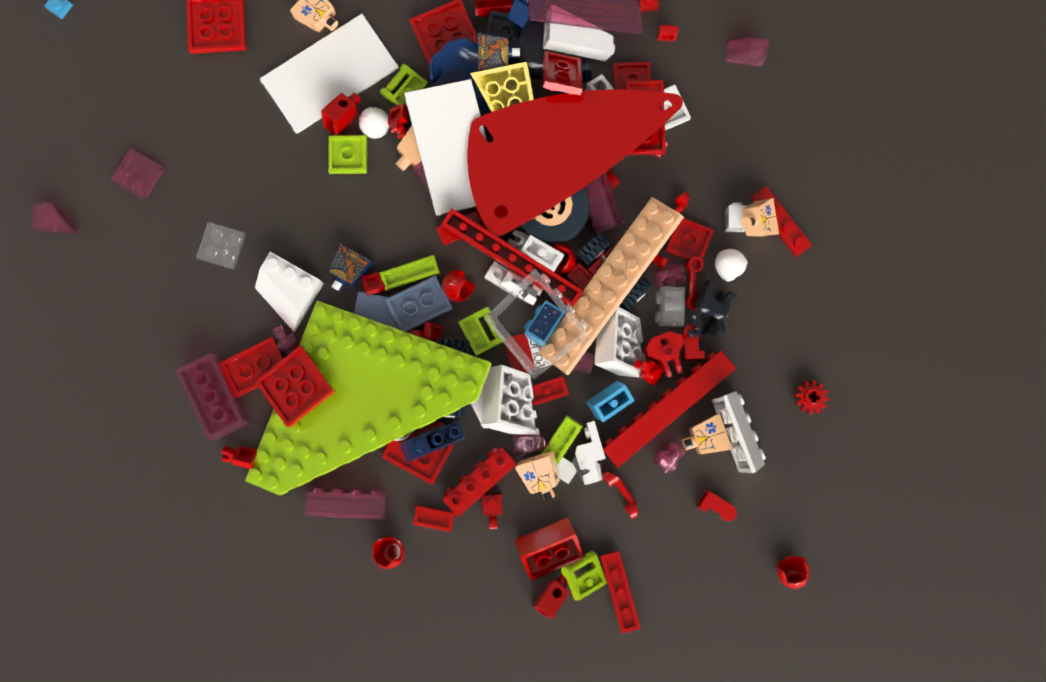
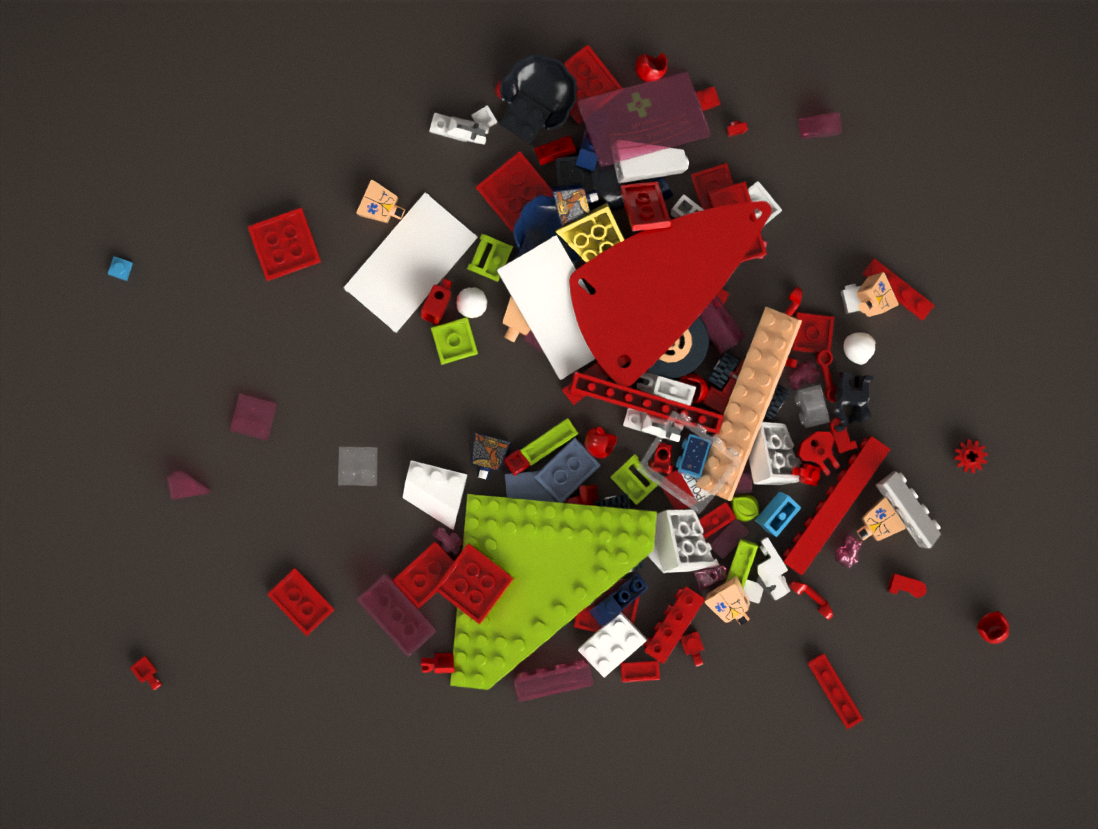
camera: 10 degrees left, 5 degrees up
(126, 359) = (301, 601): none -> red plate
(388, 552) = (607, 714): red hair -> none
(396, 118) = (494, 292): red plate -> none
(413, 484) = (612, 644): none -> white plate
(512, 322) = (662, 463): none -> red plate
(546, 602) = (769, 720): red torso -> none
(549, 548) = (757, 669): red slope -> none
(556, 413) = (729, 538): none -> clear pink plate
(580, 387) = (745, 507): none -> lime hat
(587, 581) = (802, 689): lime plate -> none

